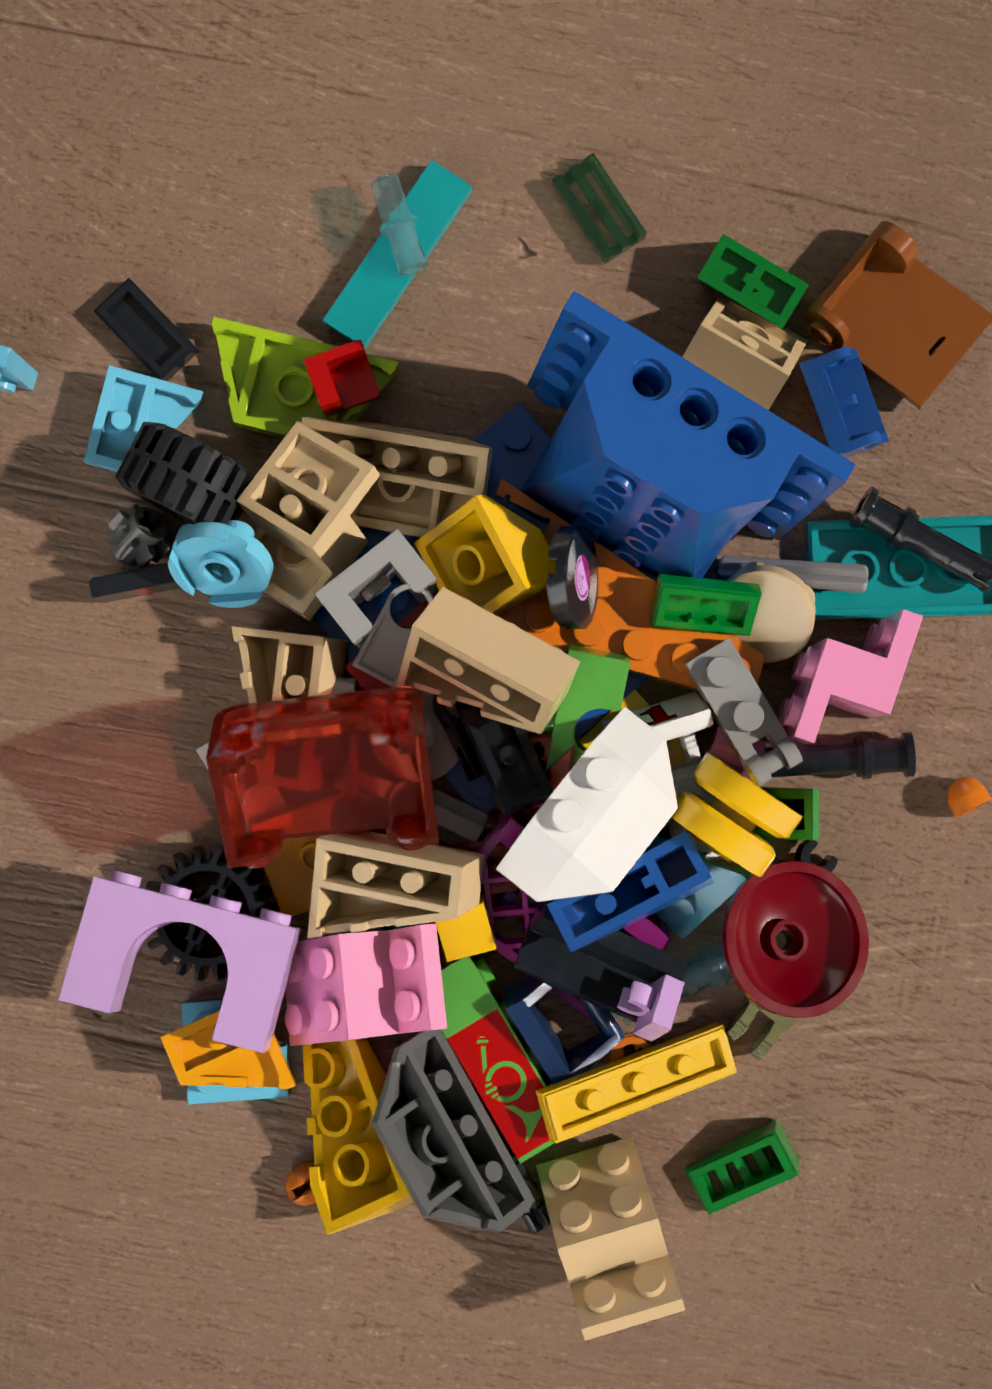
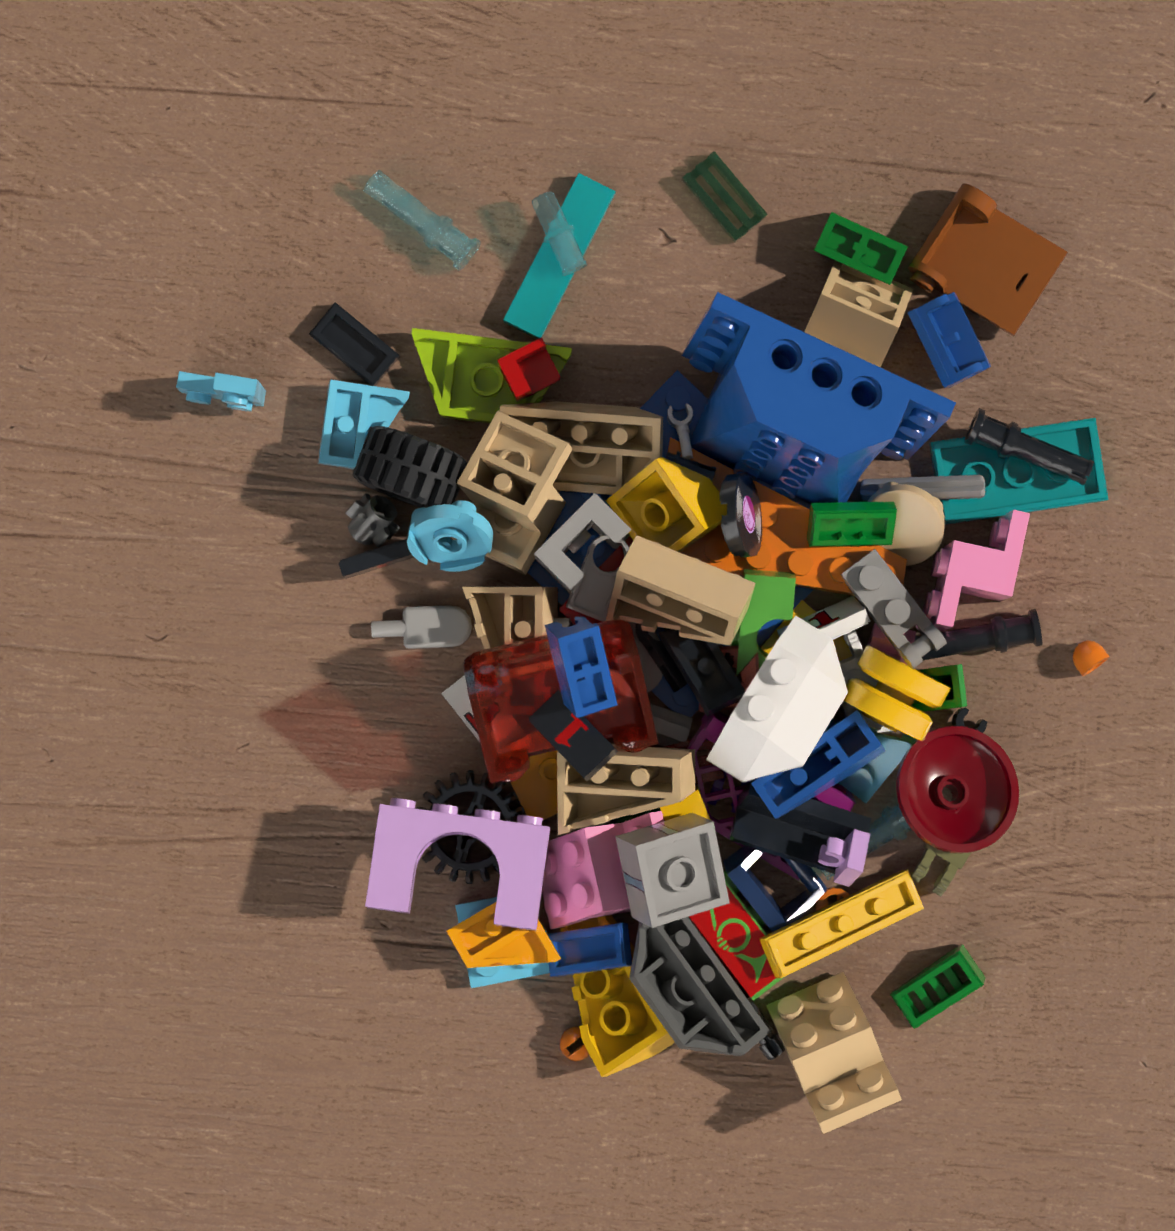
camera: 10 degrees left, 0 degrees up
(190, 670) = (427, 627): none -> light grey piece
(257, 207) = (436, 230): none -> clear light blue pin
(333, 1078) = (591, 949): none -> blue tile
(336, 821) = (572, 736): none -> black tile
(353, 739) = (581, 667): none -> blue hinge
(438, 999) = (672, 869): none -> light grey container
(516, 471) = (683, 431): none -> white hand

